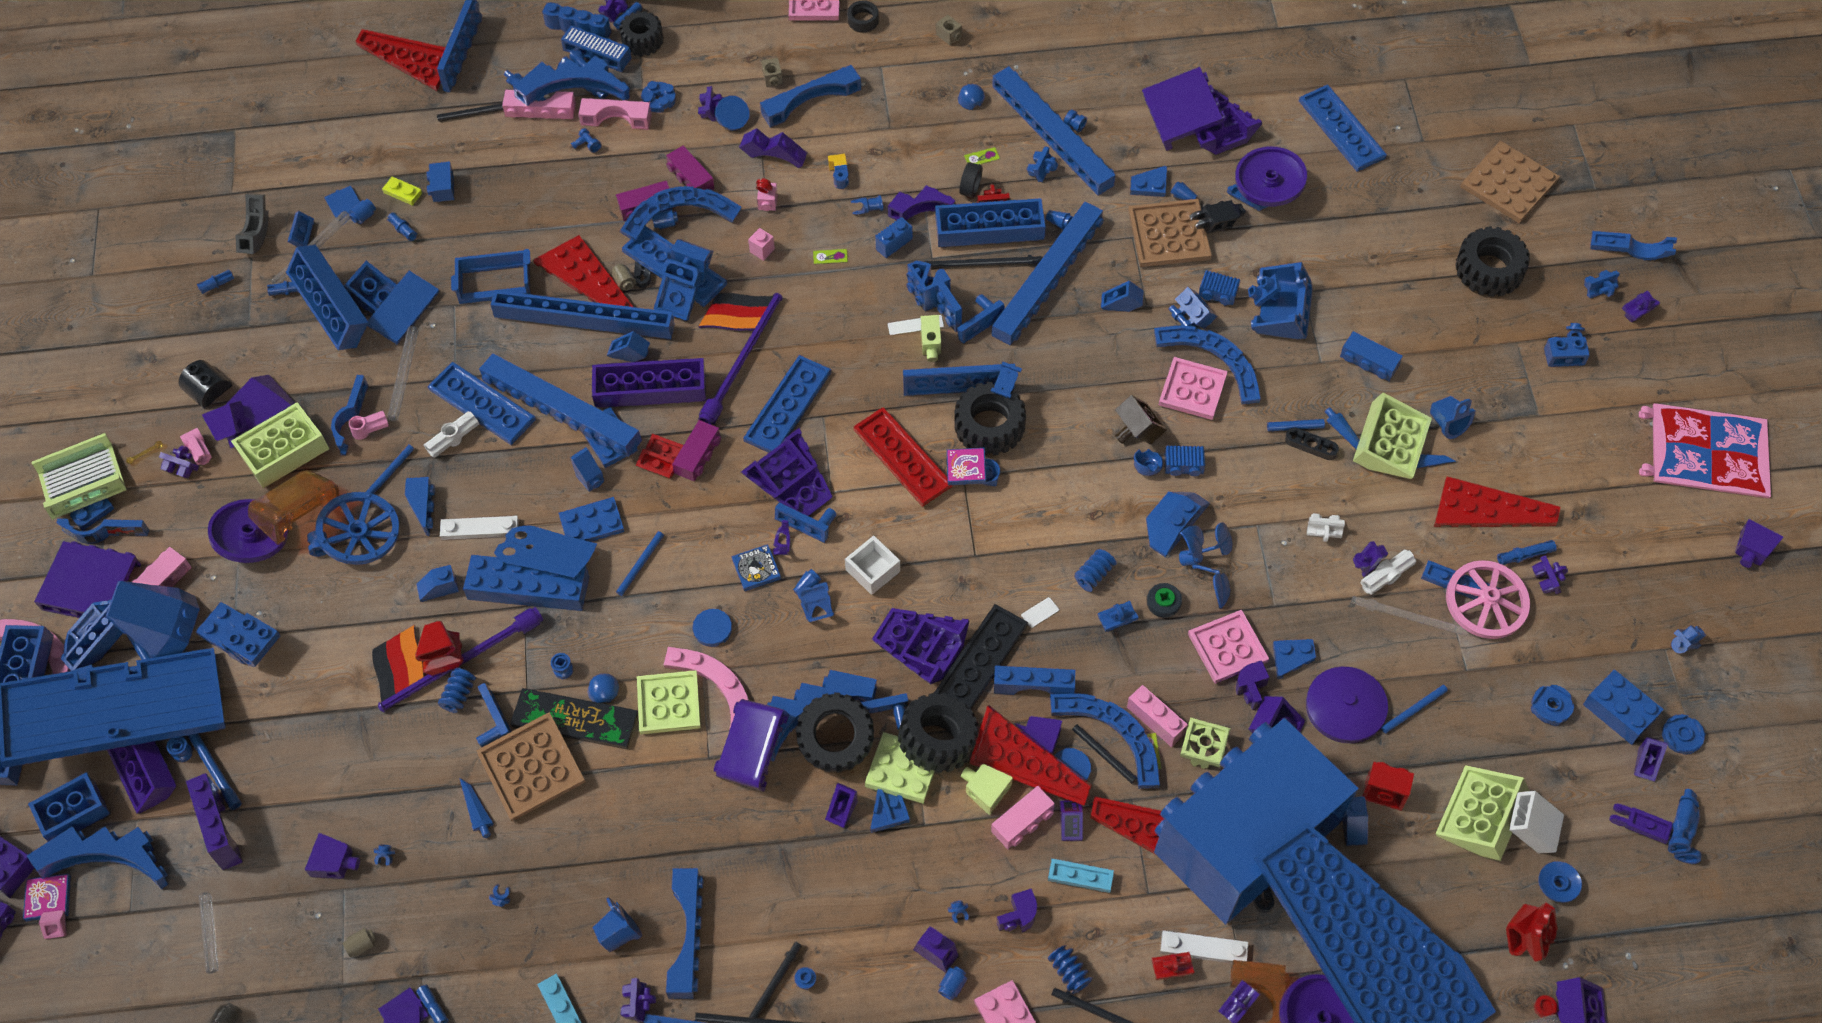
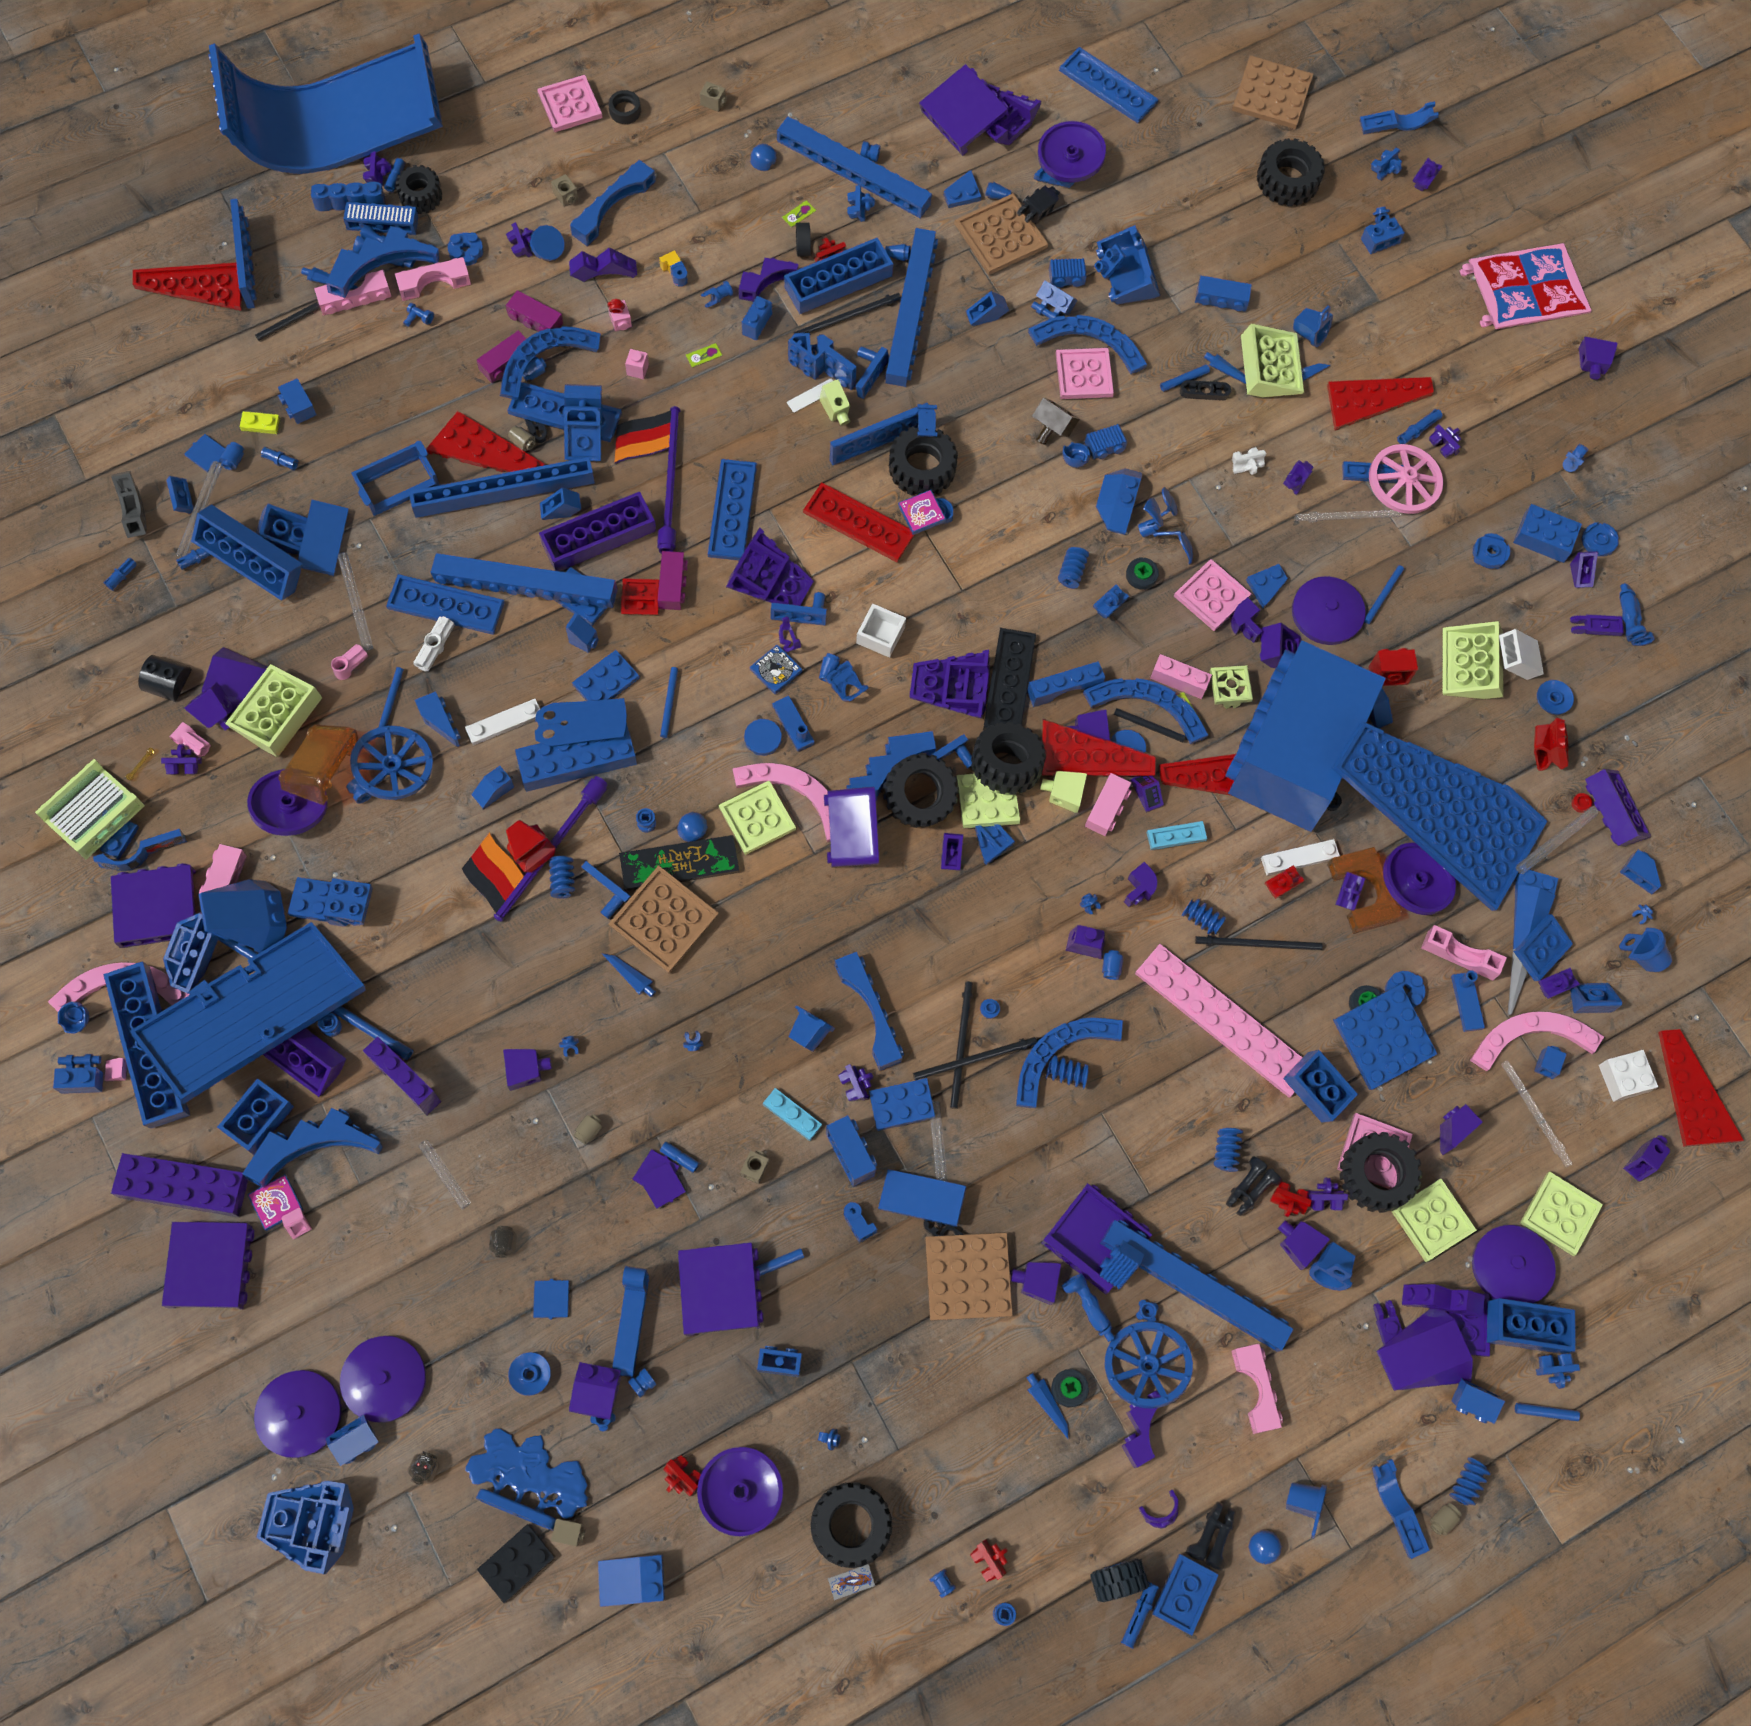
camera: 30 degrees left, 10 degrees up
(346, 413) = (323, 656): blue piece -> none
(747, 625) = (793, 723): none -> blue piece
(1040, 612) = (1040, 621): white sticker -> none
(1388, 572) = (1315, 483): white piece -> none

